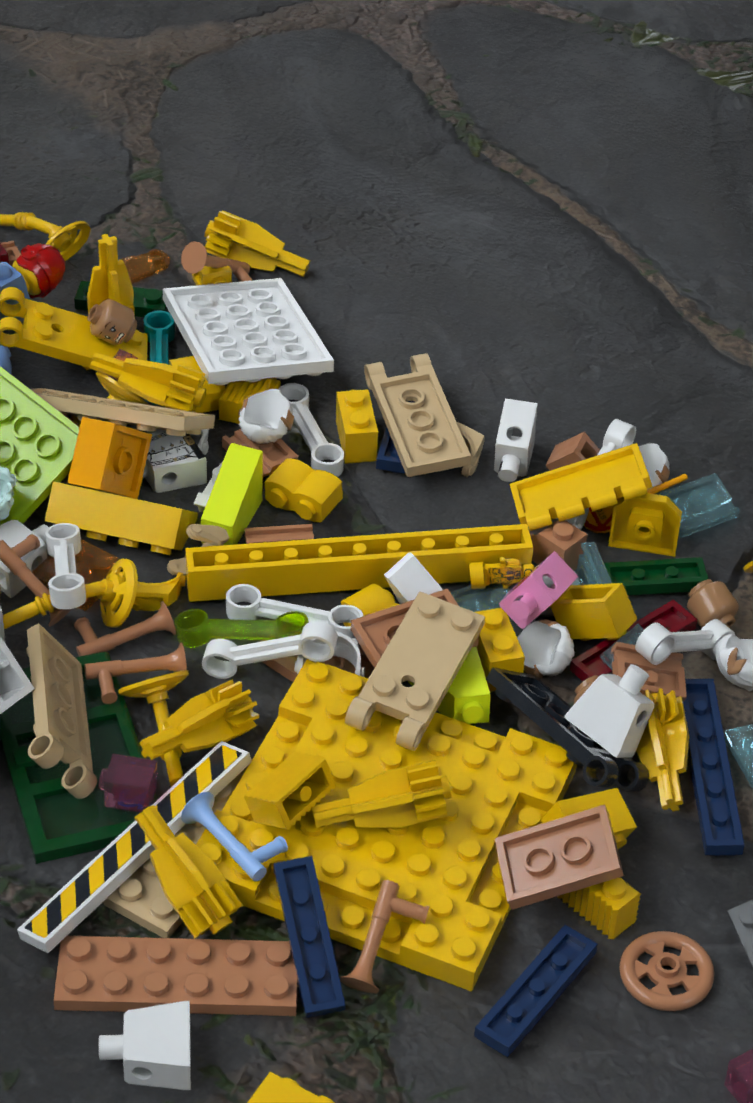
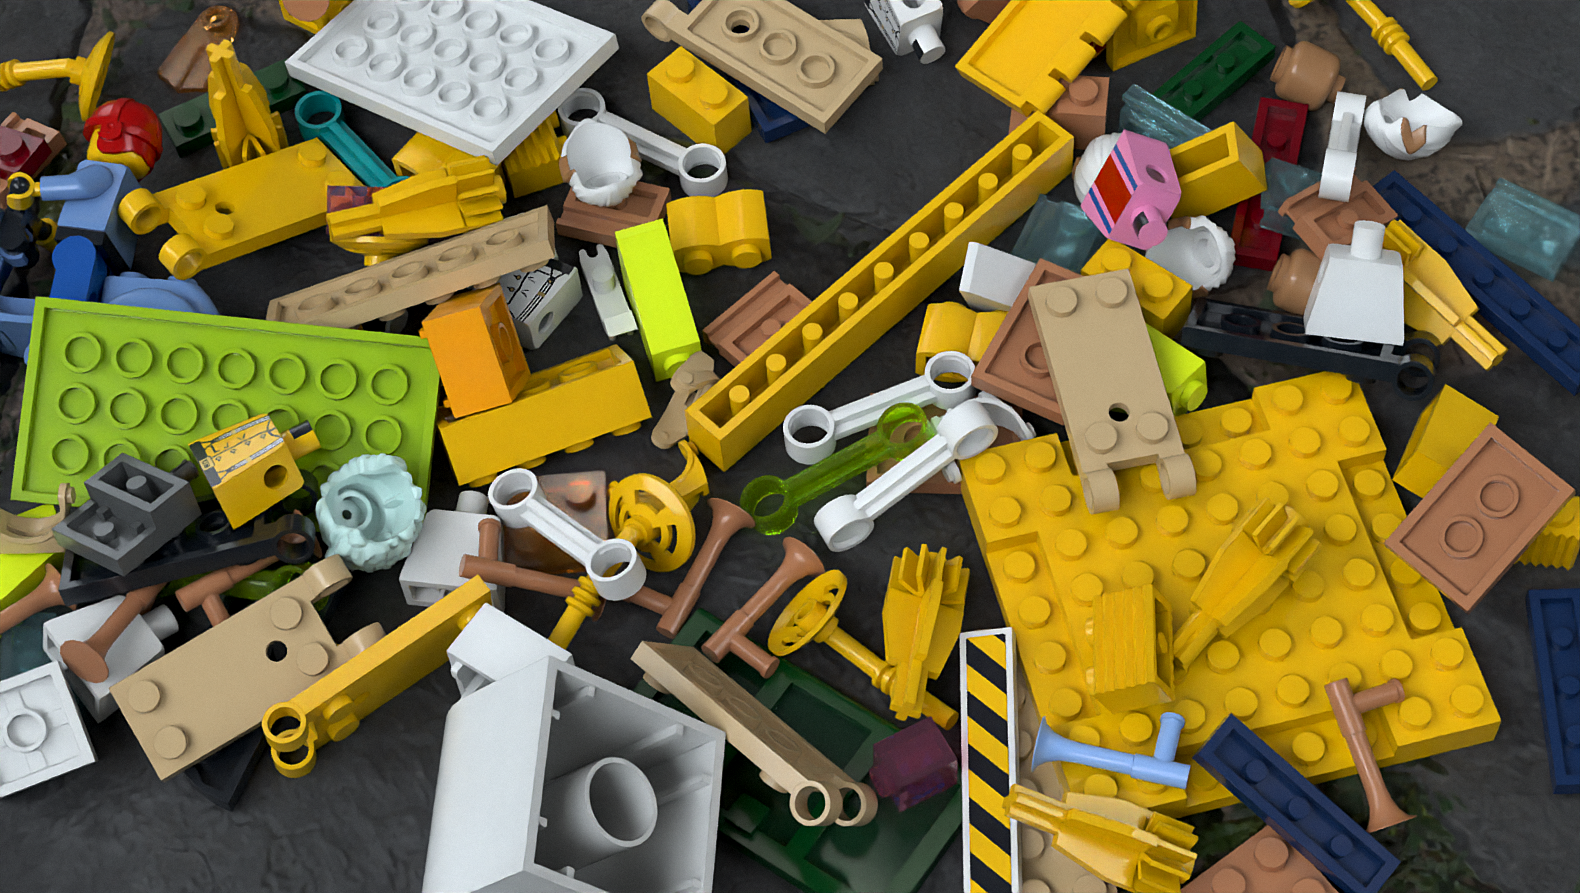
camera: 30 degrees left, 15 degrees up
(112, 322) = (286, 154): medium nougat head -> none
(506, 572) = (1036, 208): yellow piece -> none

